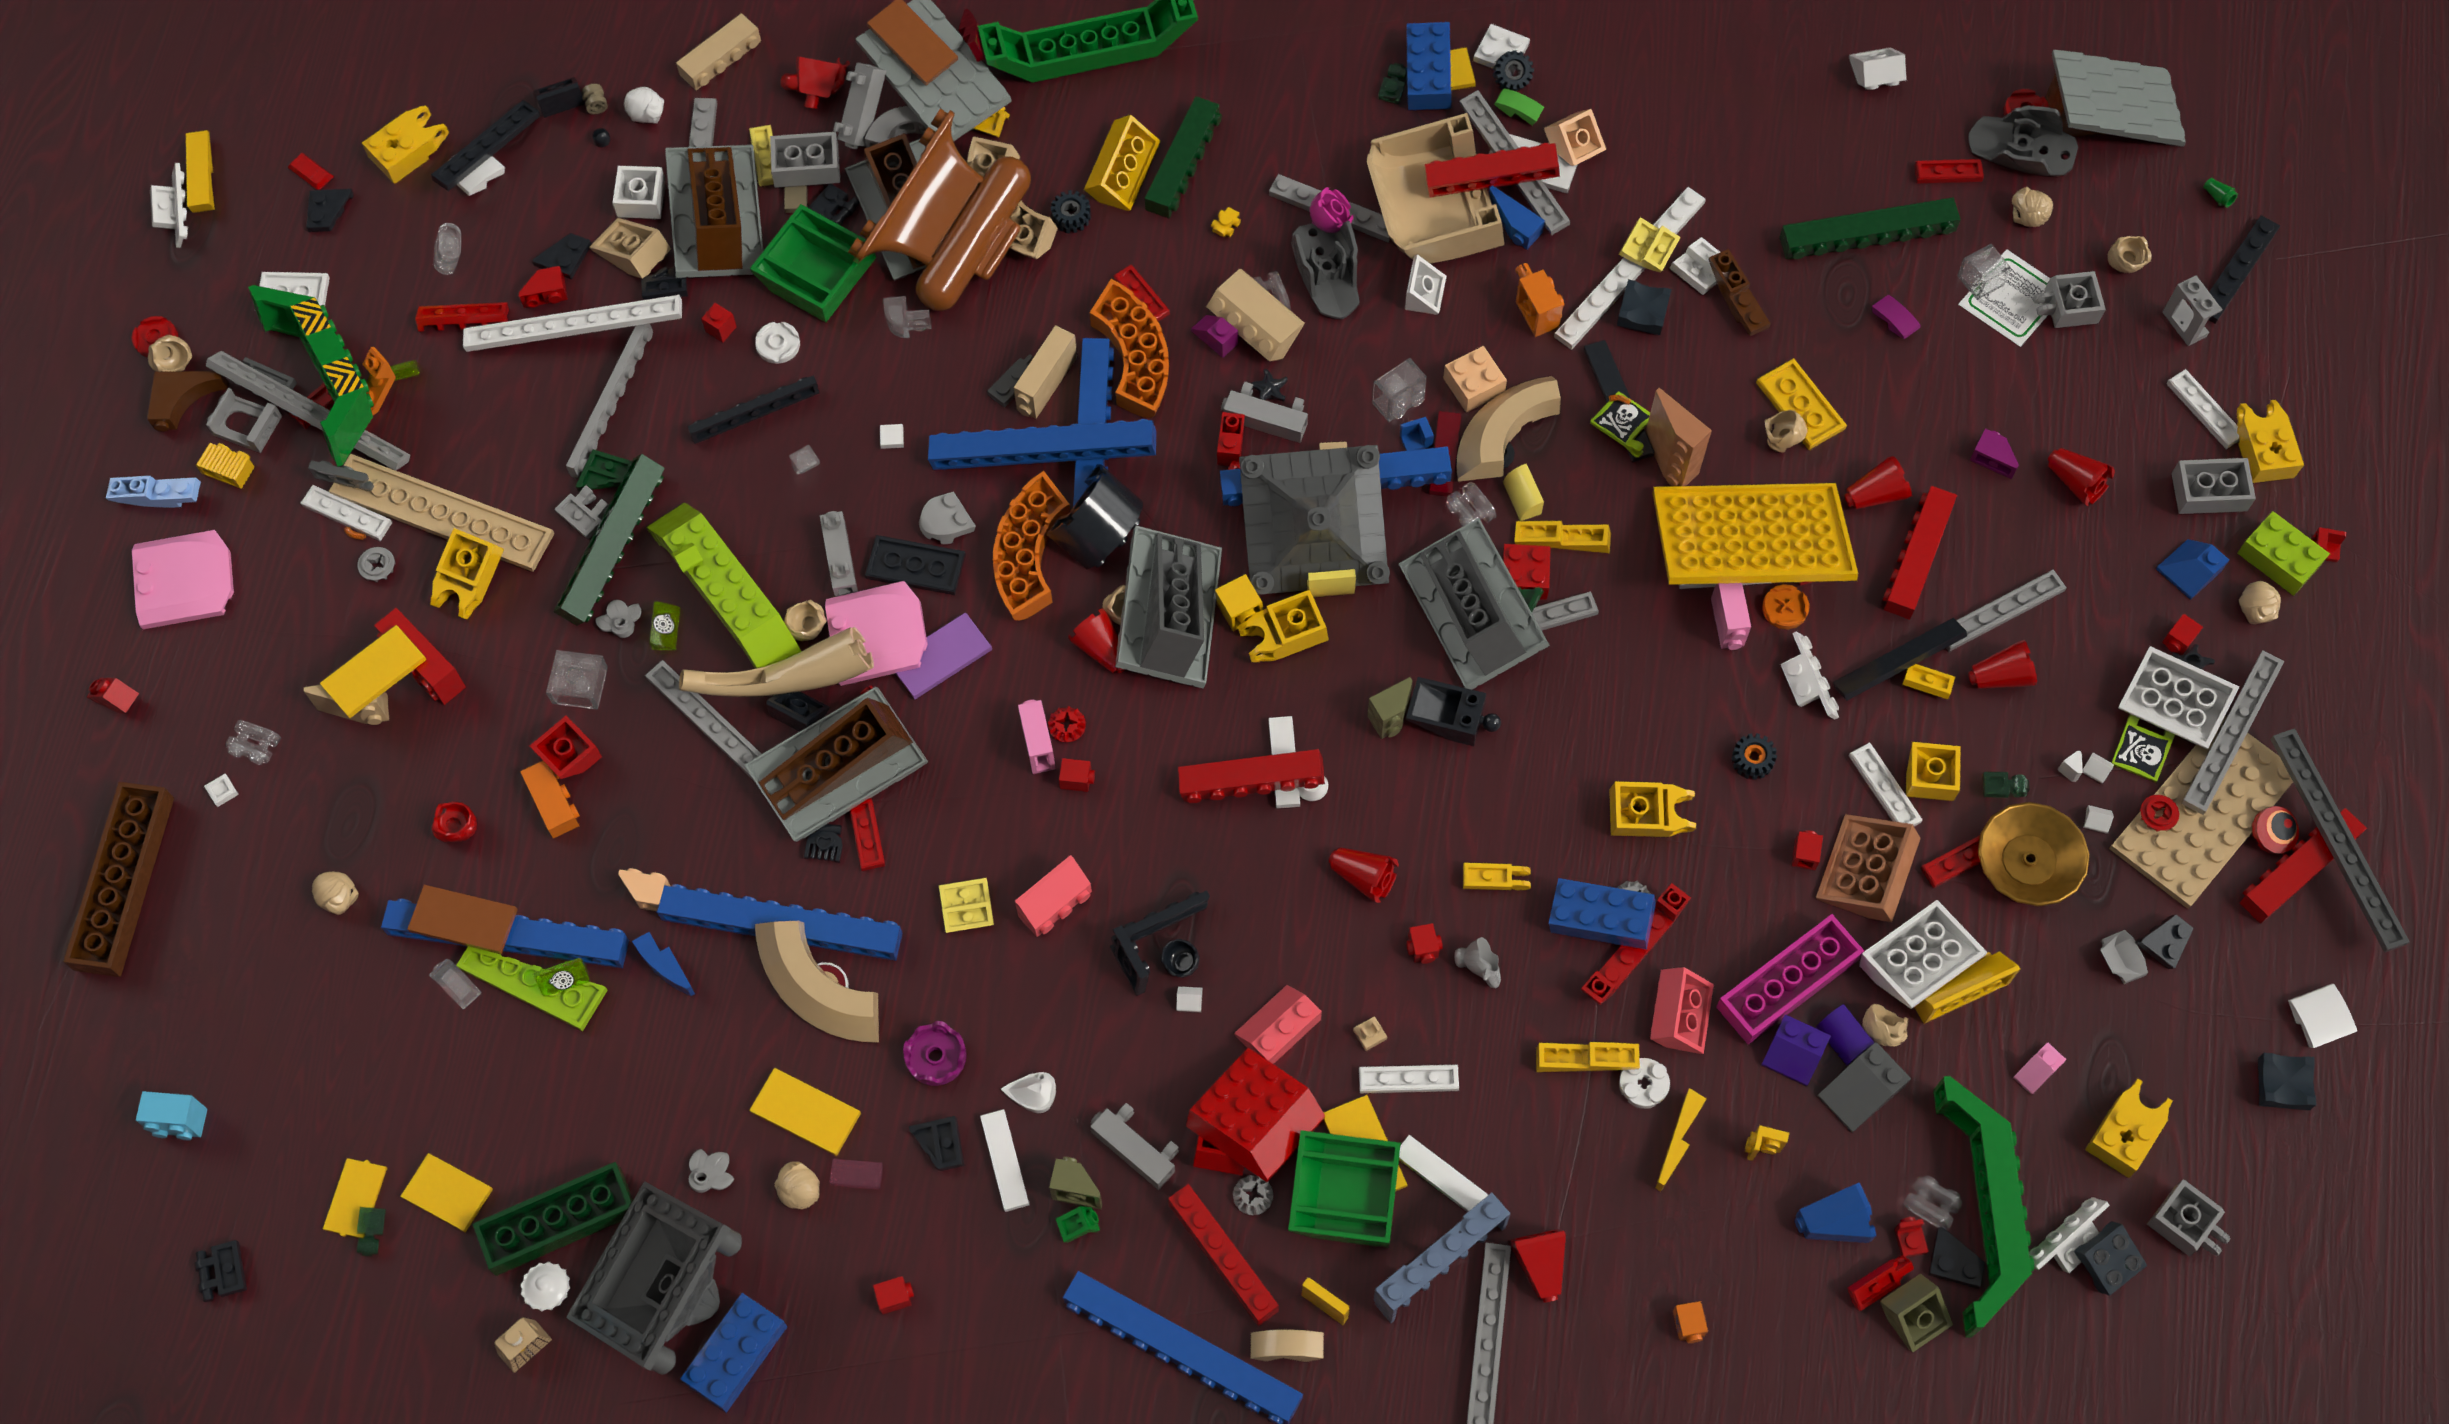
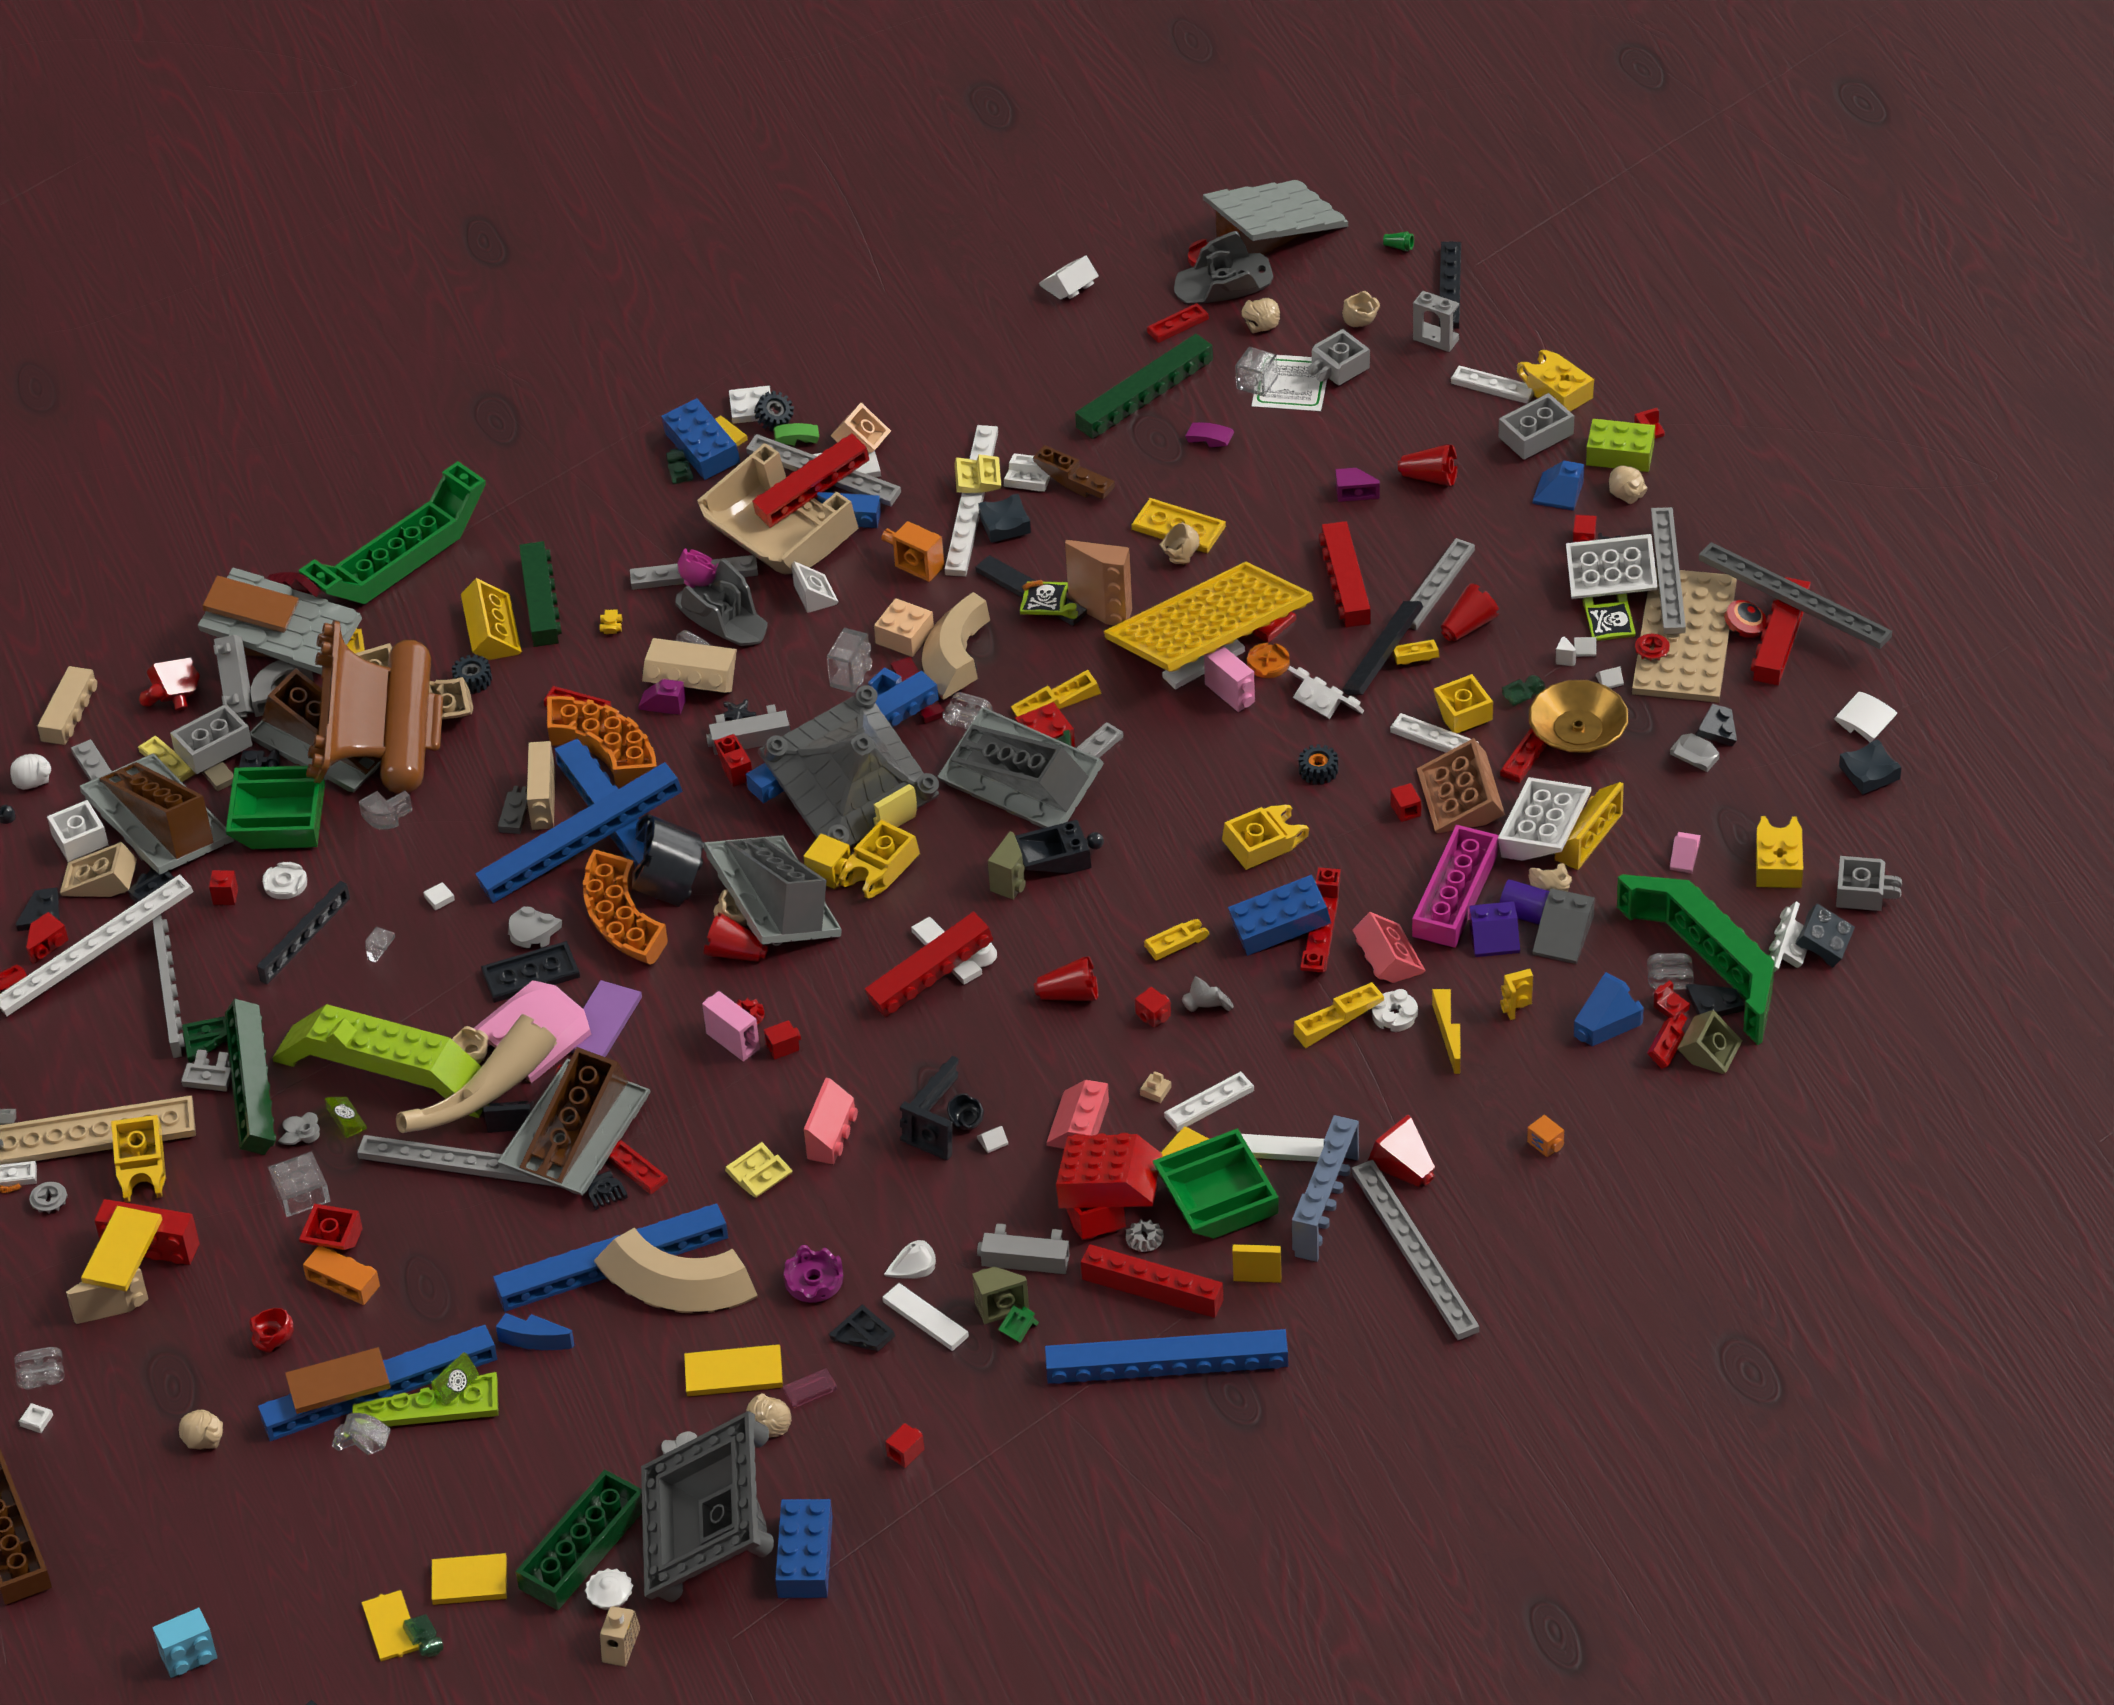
camera: 30 degrees left, 20 degrees down
(644, 888) = (475, 1293): light nougat slope -> none
(838, 553) = (458, 991): light grey brick -> none
(1288, 1344) = (1255, 1303): tan brick -> none
(1523, 492) = (1002, 682): light yellow brick -> none
(1879, 486) = (1283, 543): red cone -> none

